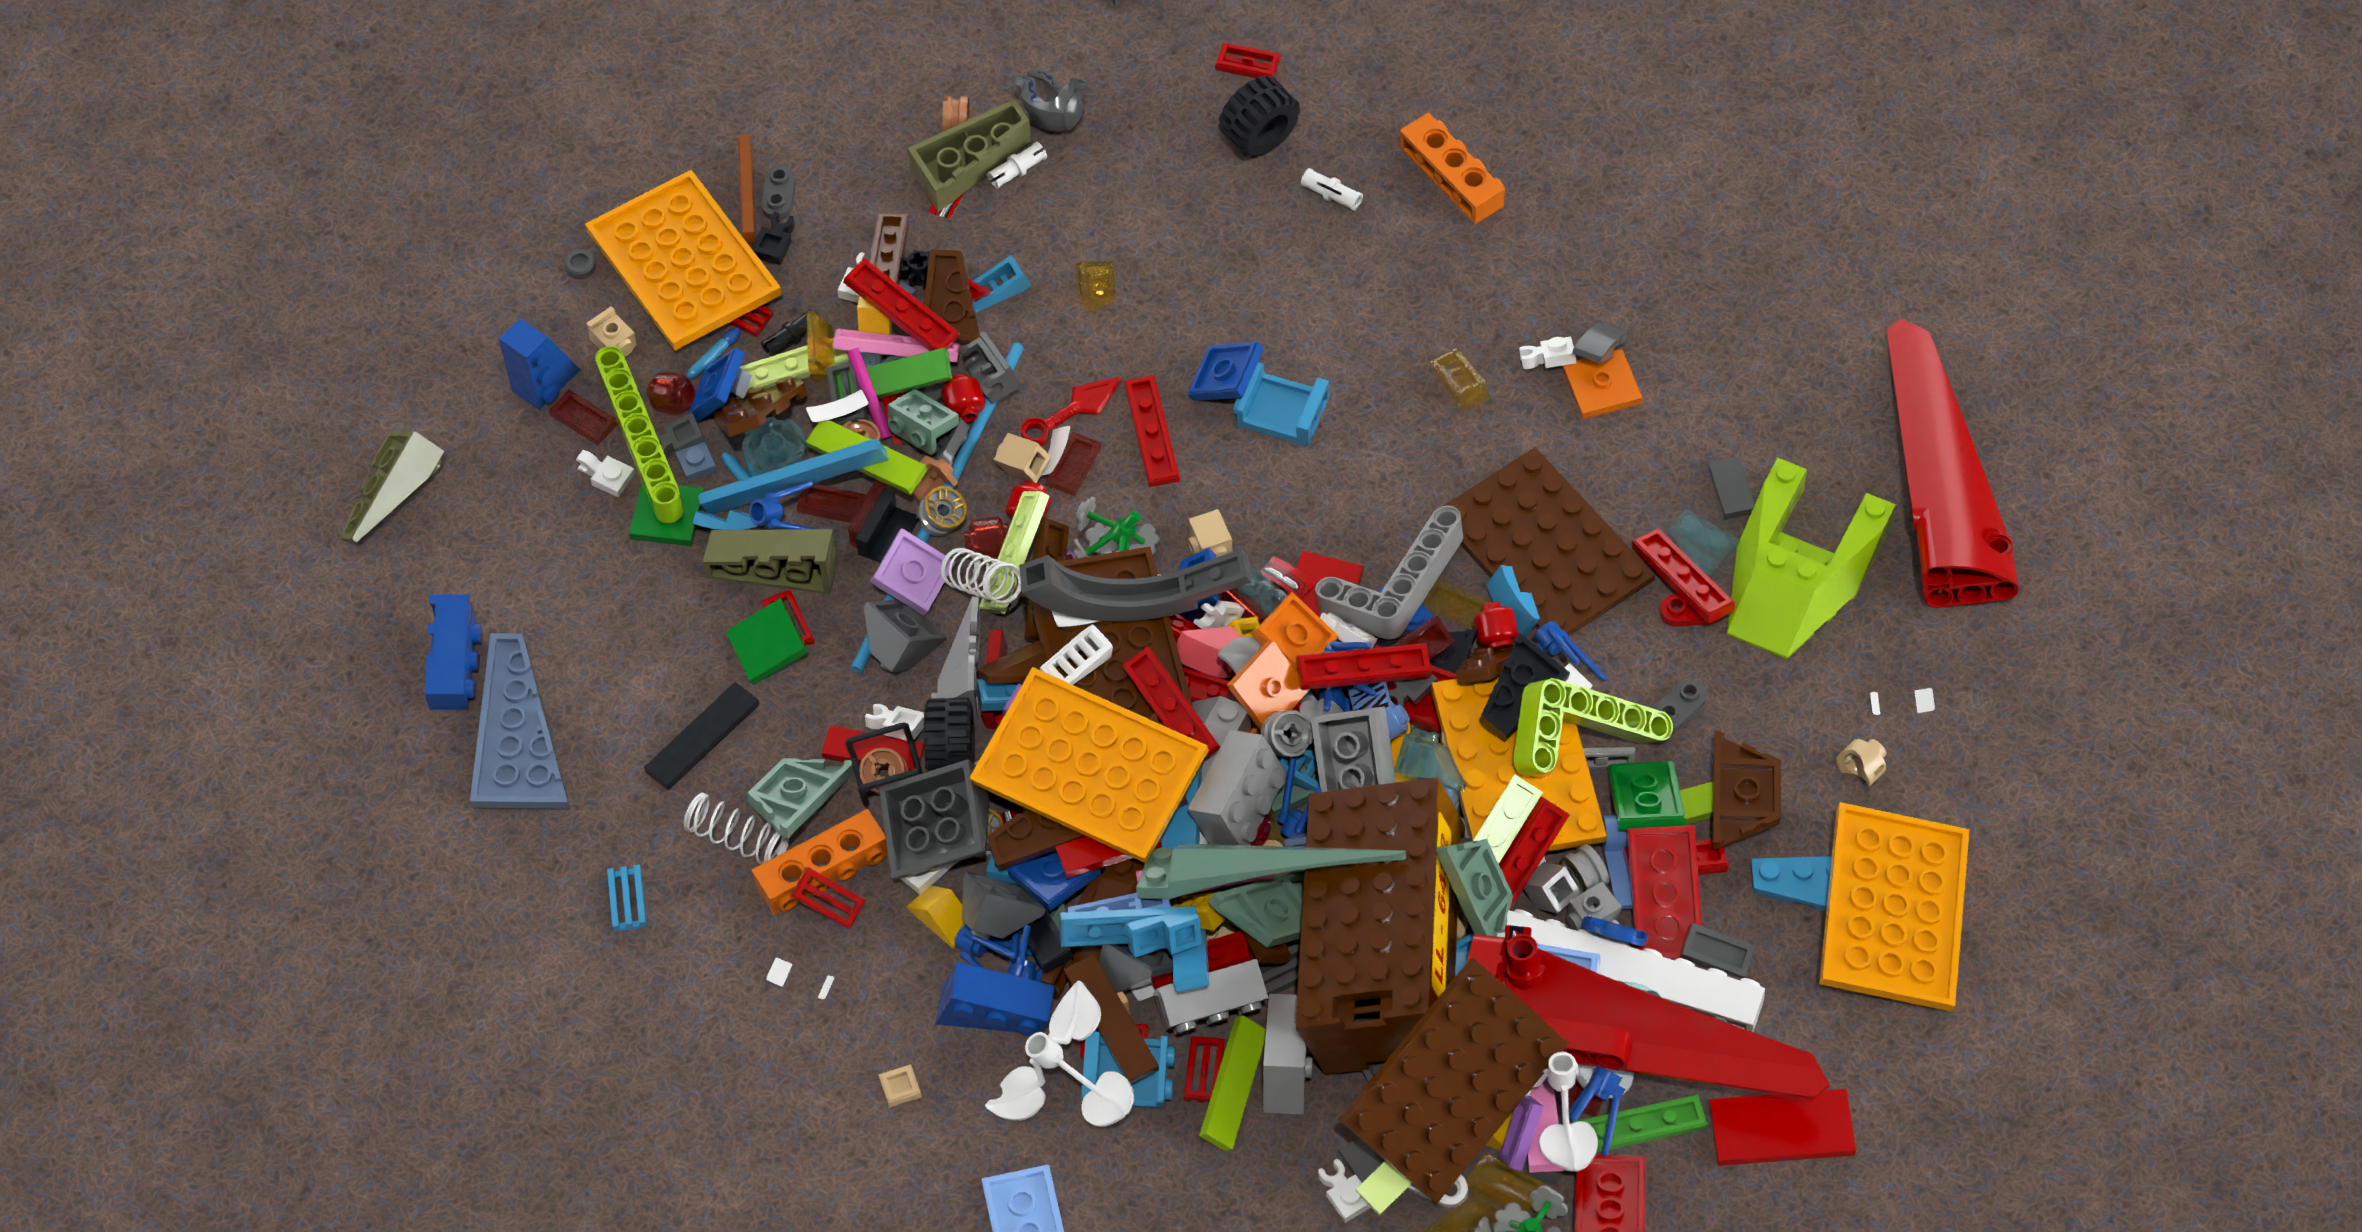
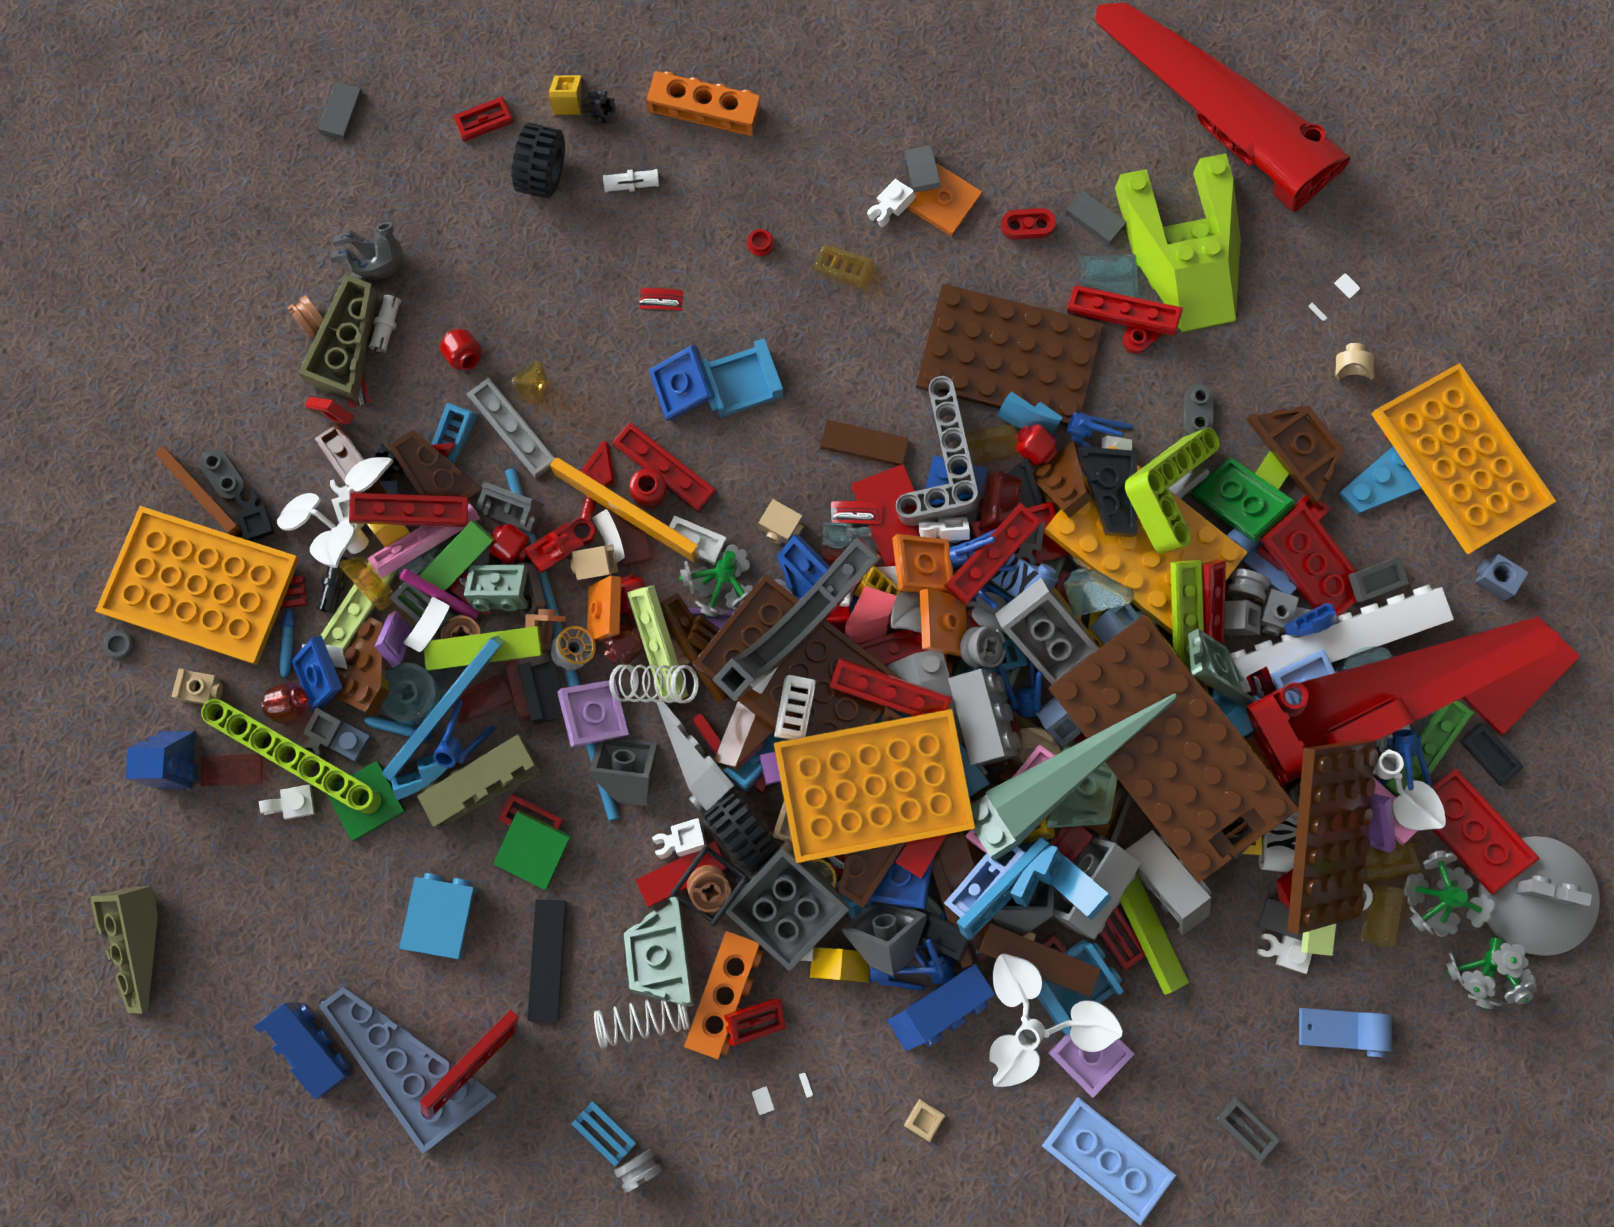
camera: 45 degrees left, 20 degrees up
(568, 749) = (469, 1065): none -> red tile
(628, 938) = (638, 1170): none -> light grey wheel
(643, 635) = (438, 916): none -> dark azure panel
(795, 399) = (391, 639): none -> medium lavender tile
(838, 299) = (332, 544): none -> white plant
(911, 199) = (330, 409): none -> red tile
(995, 421) = (553, 547): none -> red hips
(995, 494) = (604, 608): none -> orange plate
(1049, 315) = (511, 427): none -> light grey tile
(1061, 224) = (460, 349): none -> red head
(1084, 433) = (625, 509): none -> light orange tile
(1089, 1147) = (1087, 1068): none -> lavender plate
(1119, 432) = (642, 481): none -> red head
(1122, 497) = (708, 542): none -> white plate
(1273, 300) = (661, 299): none -> sticker
(1335, 86) = (566, 95): none -> yellow slope
(1345, 528) = (864, 443): none -> reddish brown tile
(1362, 110) = (598, 107): none -> black gear
(1401, 310) = (760, 242): none -> red plate
(1663, 449) = (1026, 221): none -> red plate
(1692, 1172) = (1491, 754): none -> black tile
(1838, 1043) = (1511, 573): none -> sand blue brick

